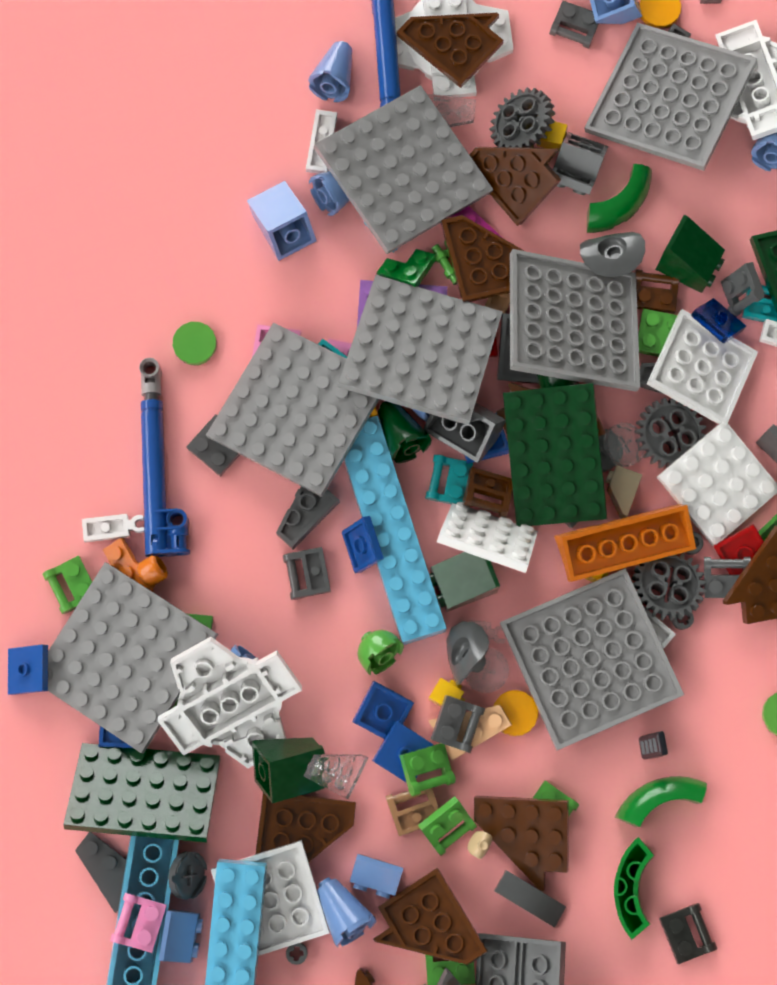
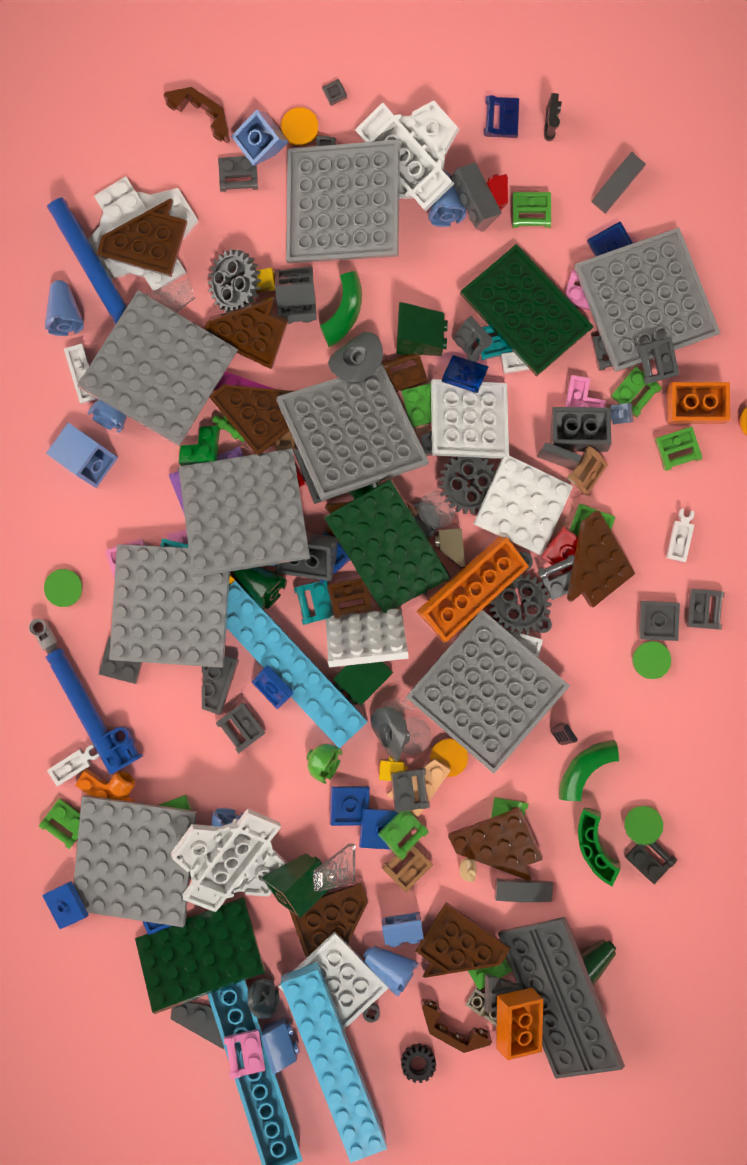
camera: 25 degrees left, 10 degrees up
(443, 821) = (433, 866): bright green plate -> none
(696, 890) = (643, 825): none -> bright green tile

